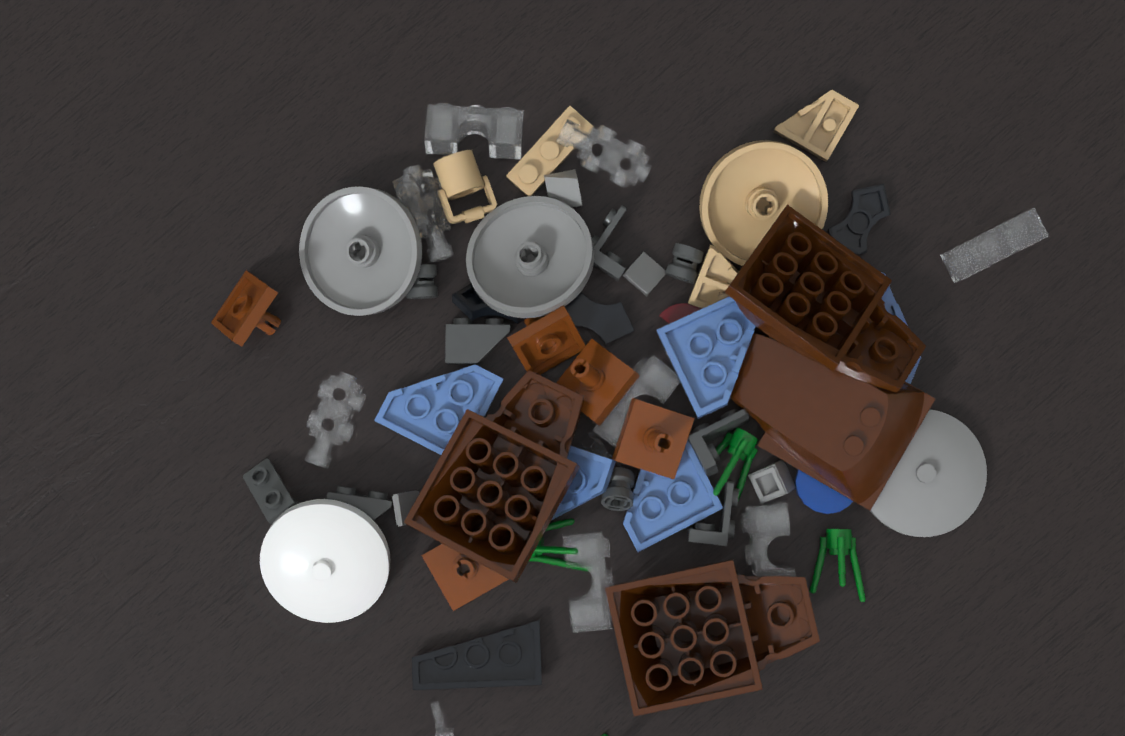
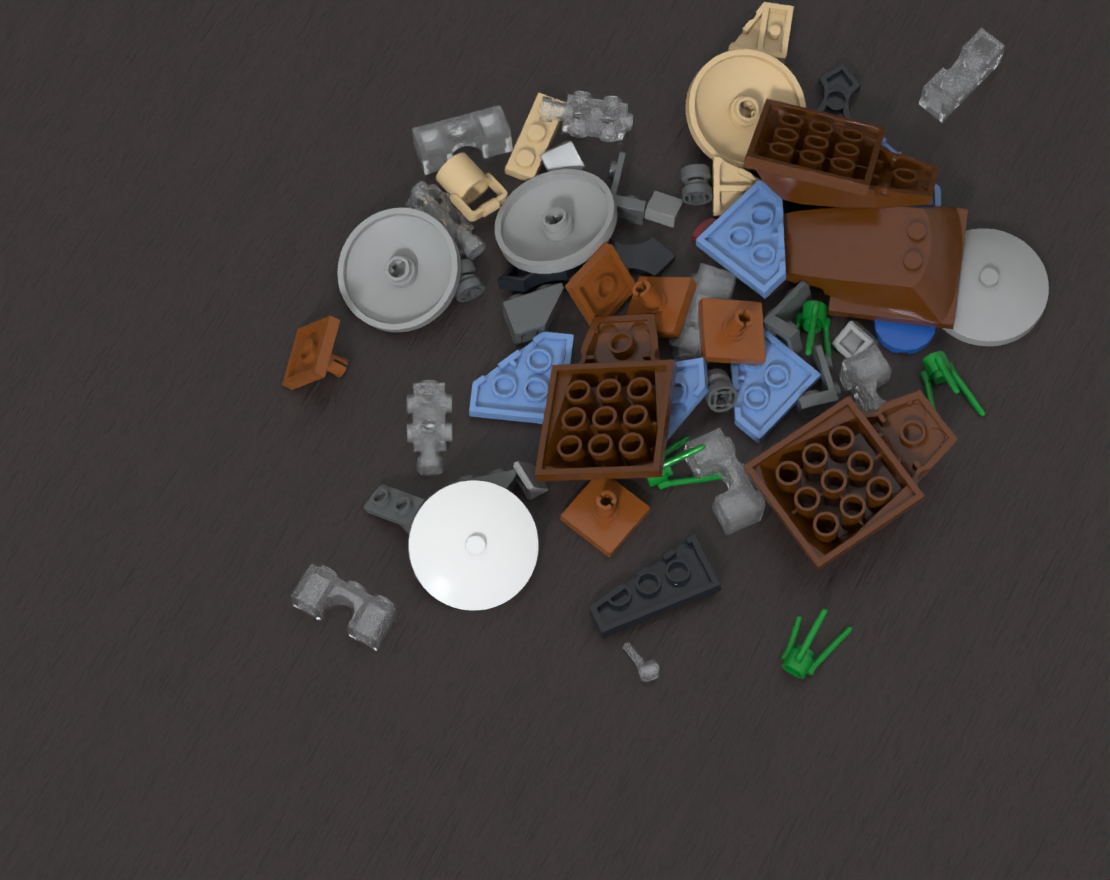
camera: 25 degrees left, 20 degrees down
(208, 588) = (322, 589): none -> clear arch

